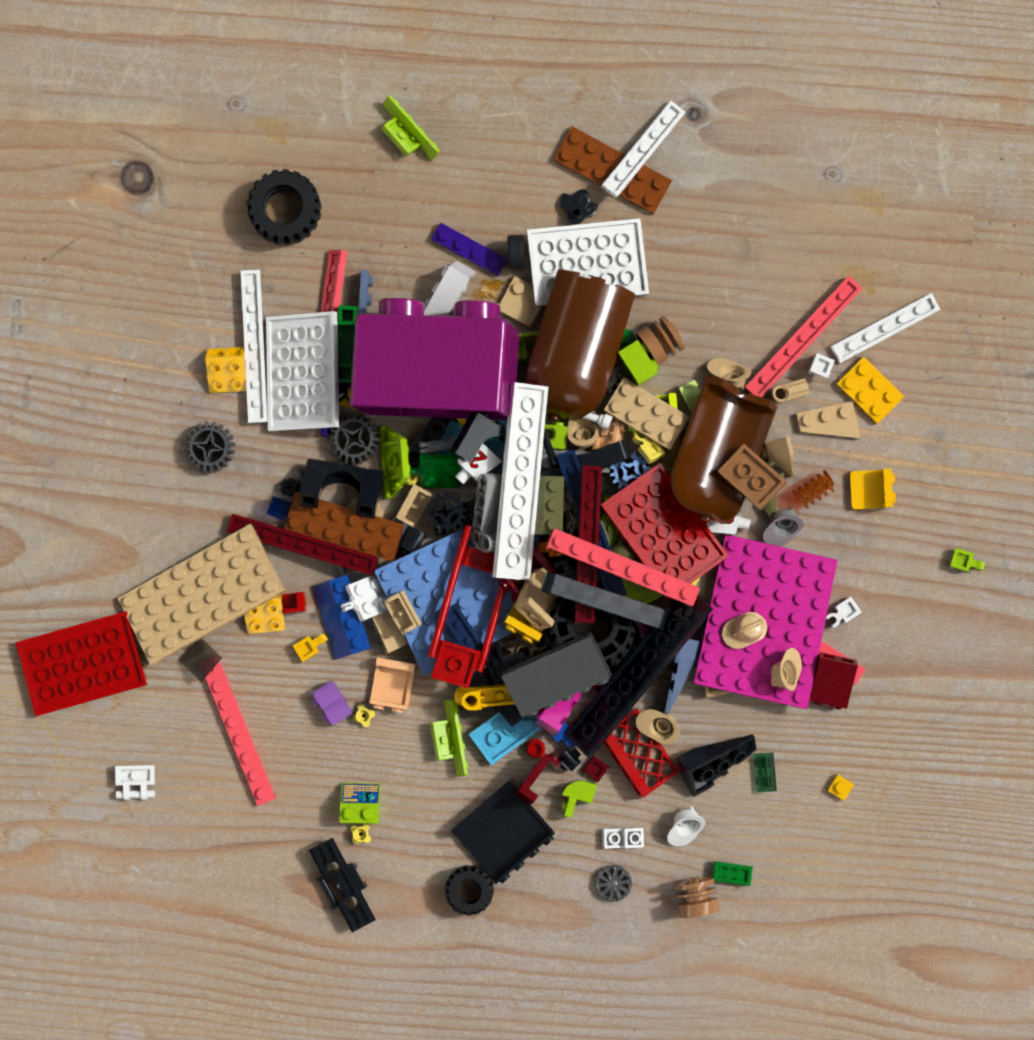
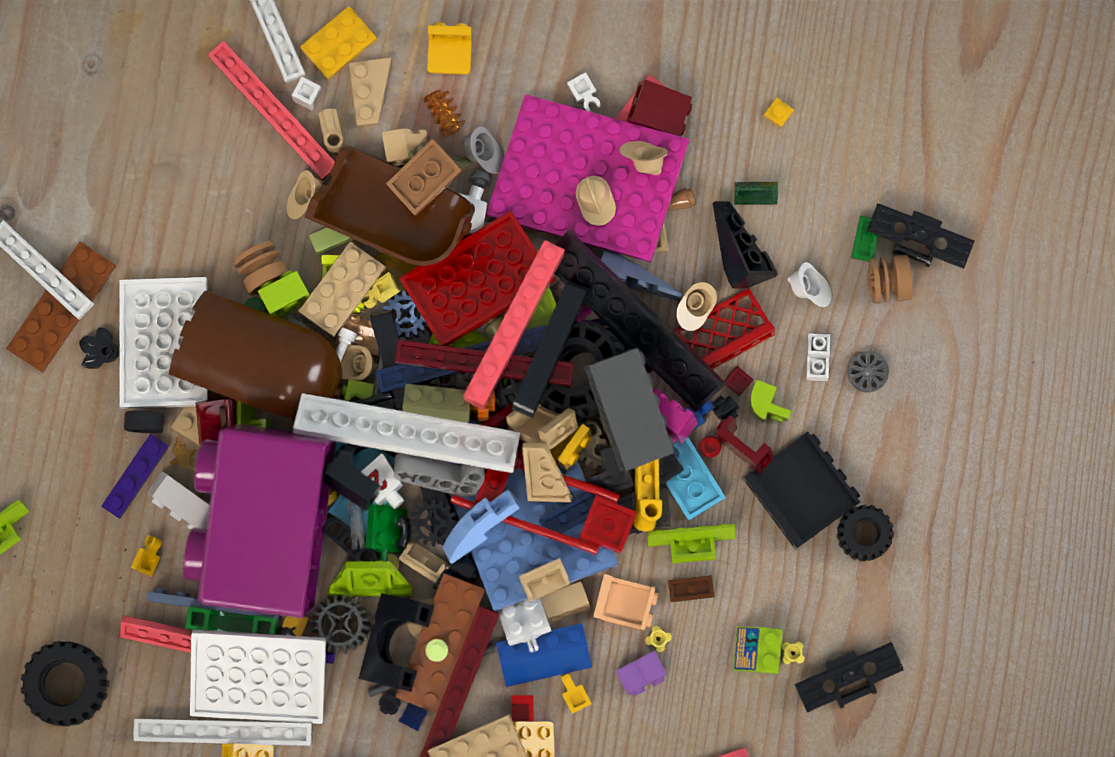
camera: 85 degrees left, 5 degrees down
(336, 524) = (436, 650): none -> yellowish green plate
(397, 267) = (146, 559): none -> yellow plate
(409, 741) = (691, 589): none -> reddish brown plate
(437, 488) = (405, 534): none -> black arm
(446, 548) = (472, 527): none -> light blue slope
(493, 603) = (543, 476): none -> tan wing
(520, 309) = (209, 417): none -> dark red plate
(743, 924) = (922, 230): none -> black piece
(754, 707) = (682, 199): none -> medium nougat cone
(757, 526) = (480, 179): none -> dark grey plate

